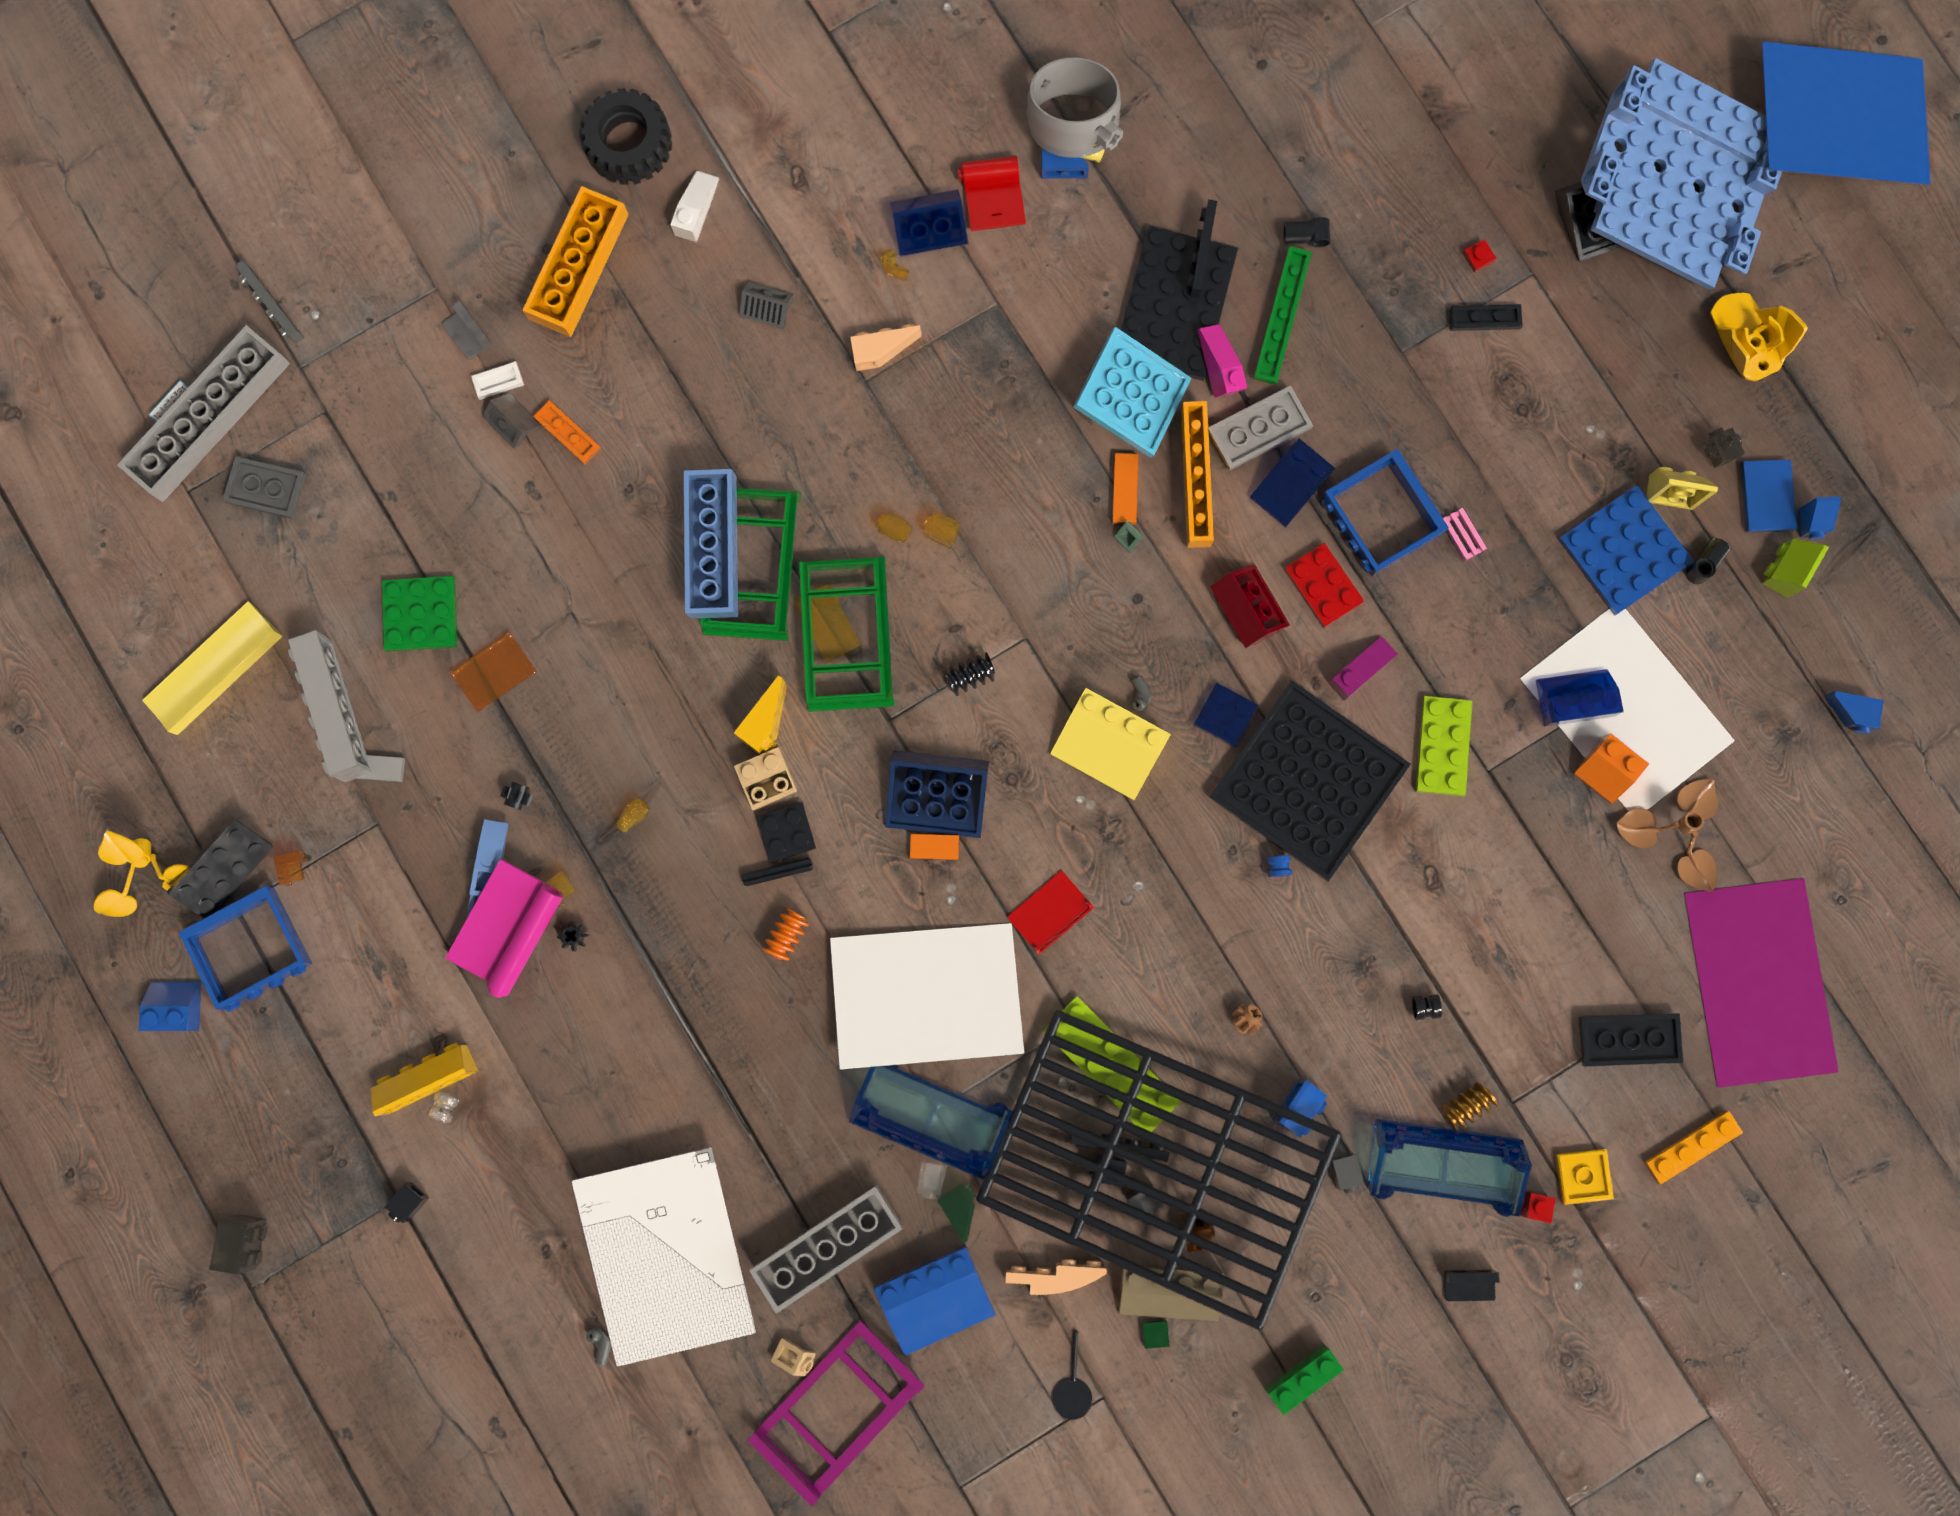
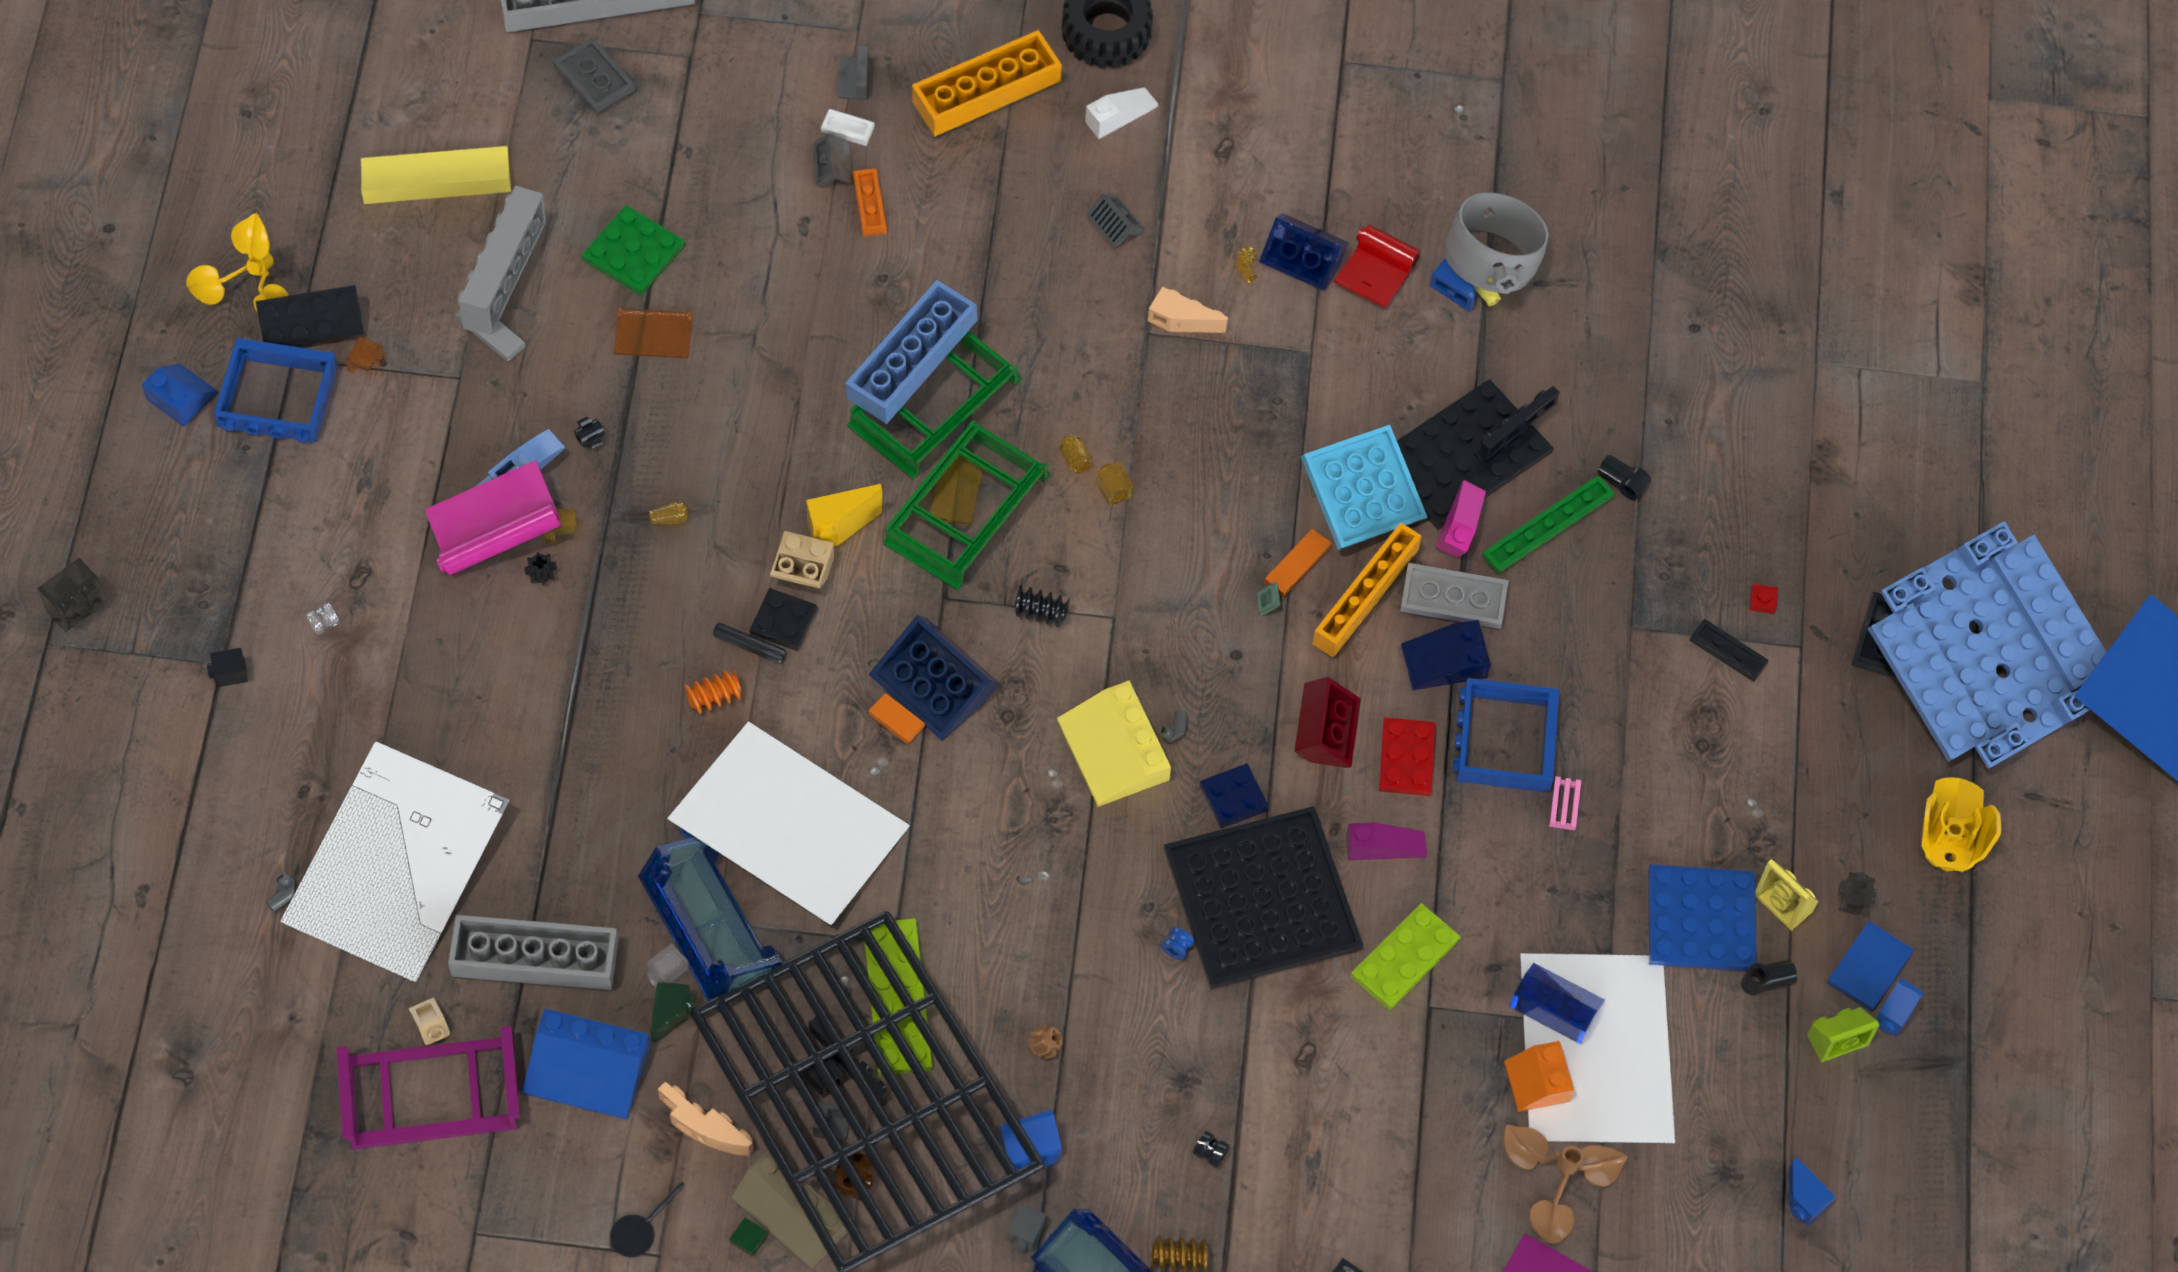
camera: 30 degrees right, 20 degrees down
(420, 1081) = (319, 584): yellow slope -> none
(1050, 912) = (950, 840): red piece -> none

